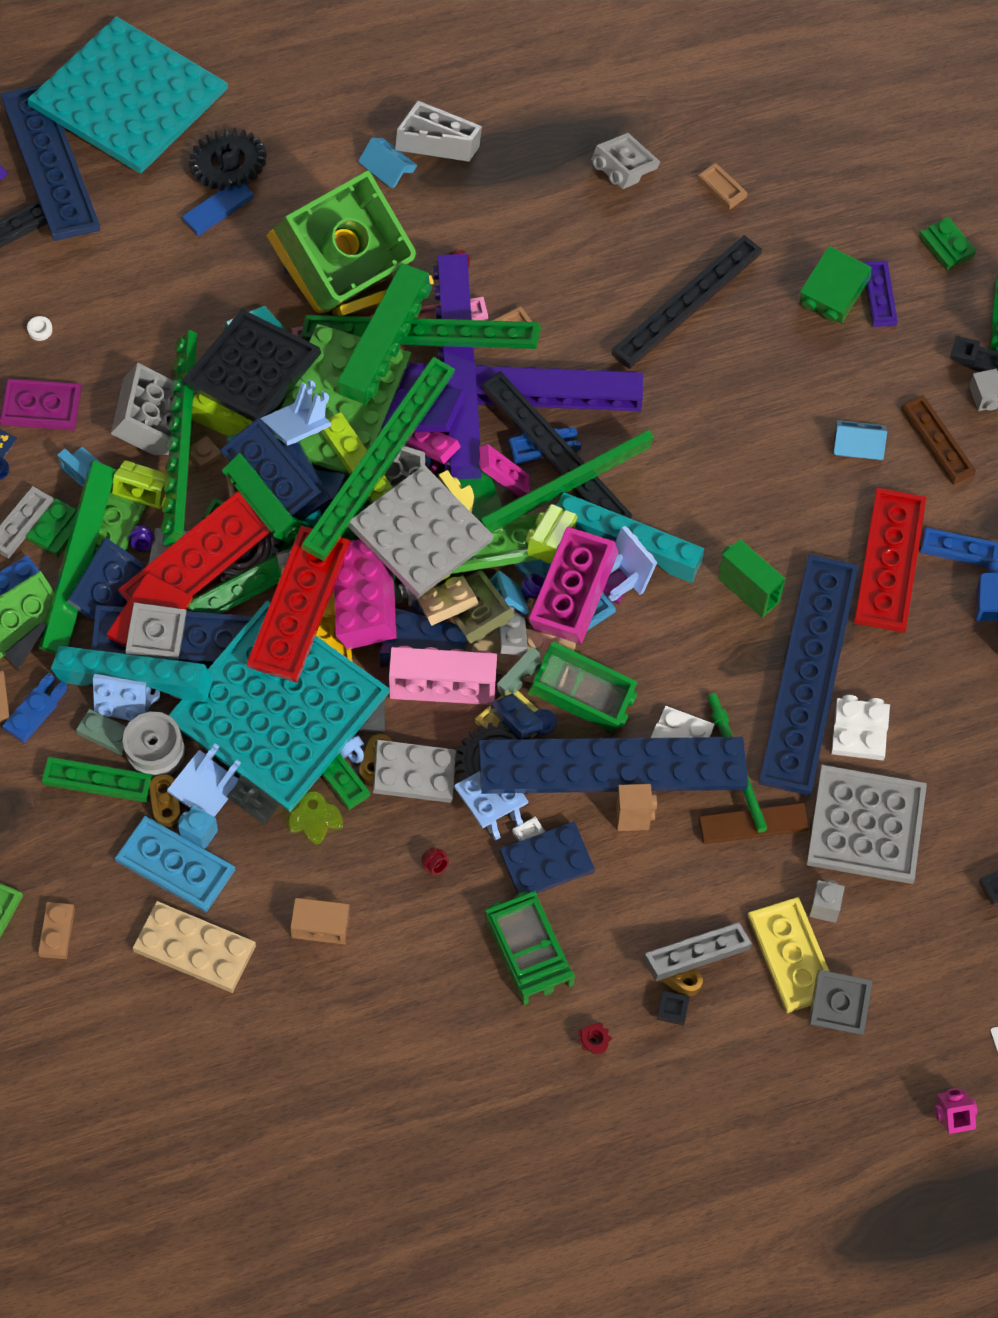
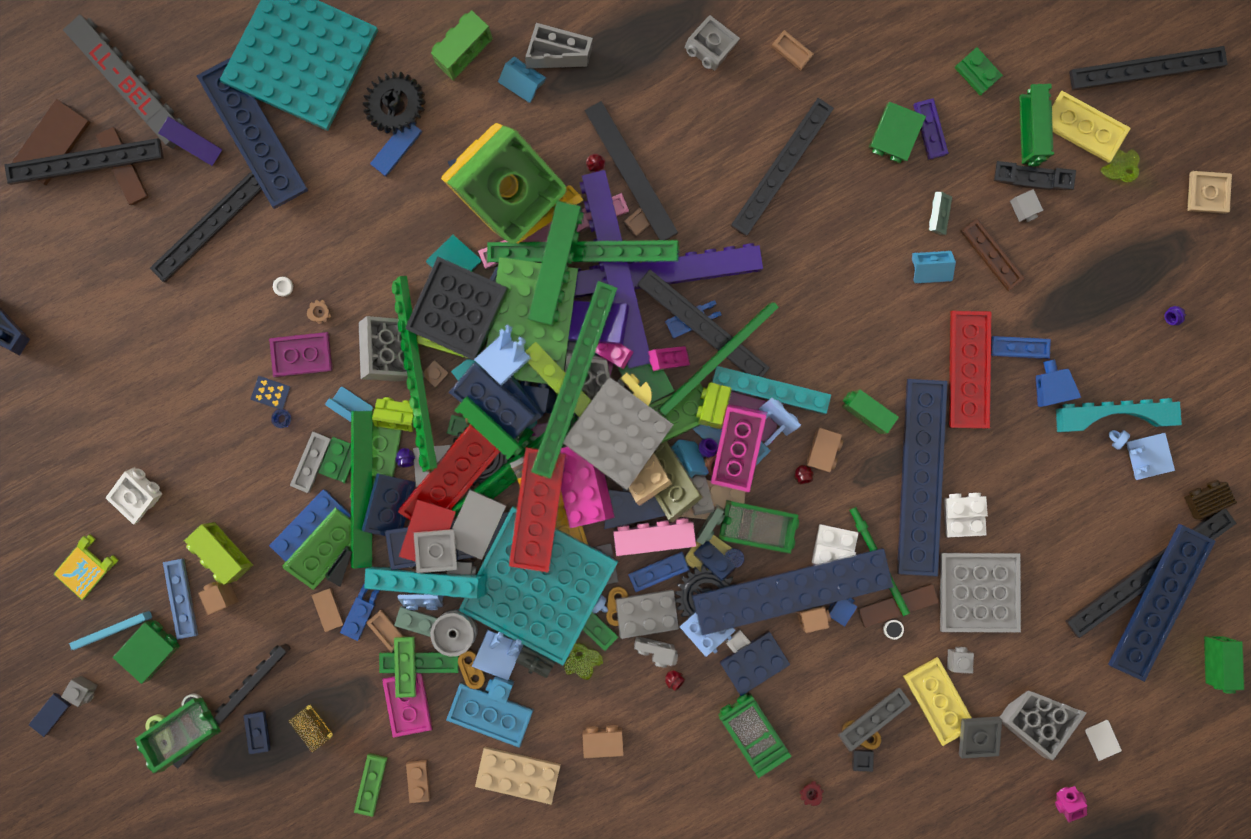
camera: 10 degrees left, 25 degrees up
(63, 736) = (384, 629): none -> medium nougat tile
(67, 831) = (407, 714): none -> dark pink tile
(75, 355) = (314, 314): none -> medium nougat animal
(78, 777) = (405, 667): none -> bright green tile
(216, 618) = (477, 523): none -> light grey tile
(324, 111) = (461, 44): none -> bright green brick
(421, 810) = (662, 652): none -> light grey plate
(441, 725) = (658, 571): none -> blue tile
(495, 264) = (631, 171): none -> black tile
(654, 644) = (803, 474): none -> dark red plate
(675, 811) = (842, 610): none -> blue brick
(684, 618) = (824, 449): none -> medium nougat brick
(742, 851) = (893, 629): none -> tile
(877, 380) = (940, 213): none -> sand green plate
(926, 995) = (1041, 722): none -> light grey wedge

